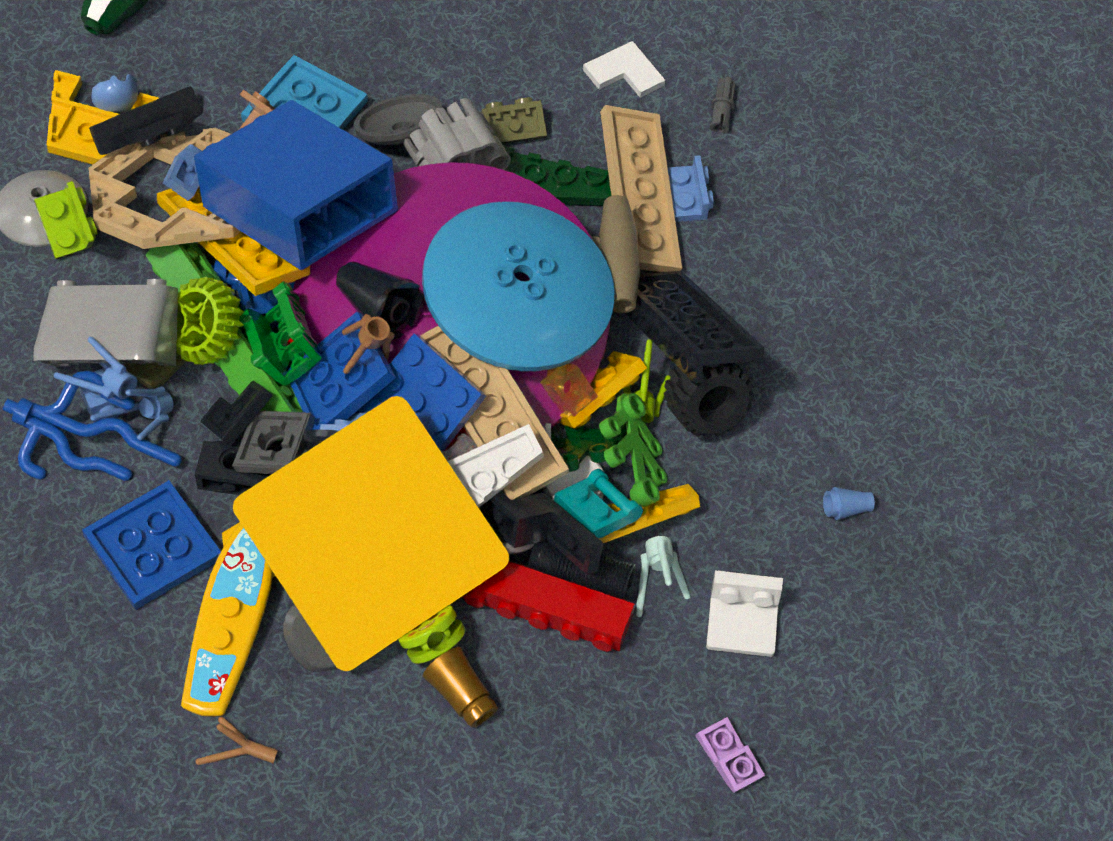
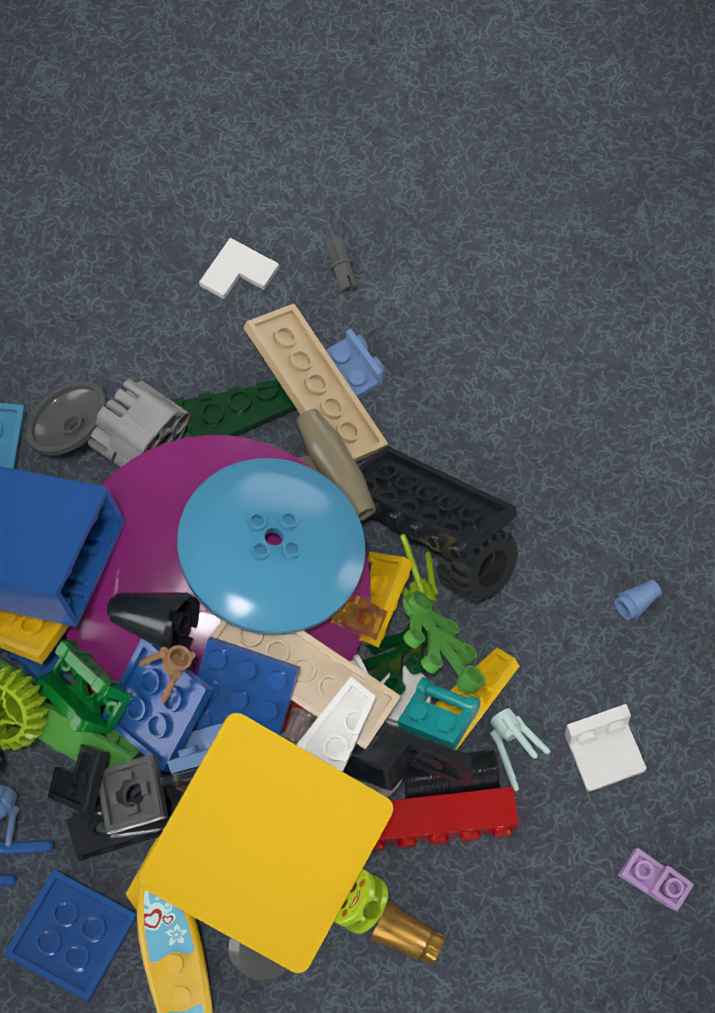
camera: 20 degrees left, 10 degrees up
(516, 121) = (170, 369): olive bracket -> none

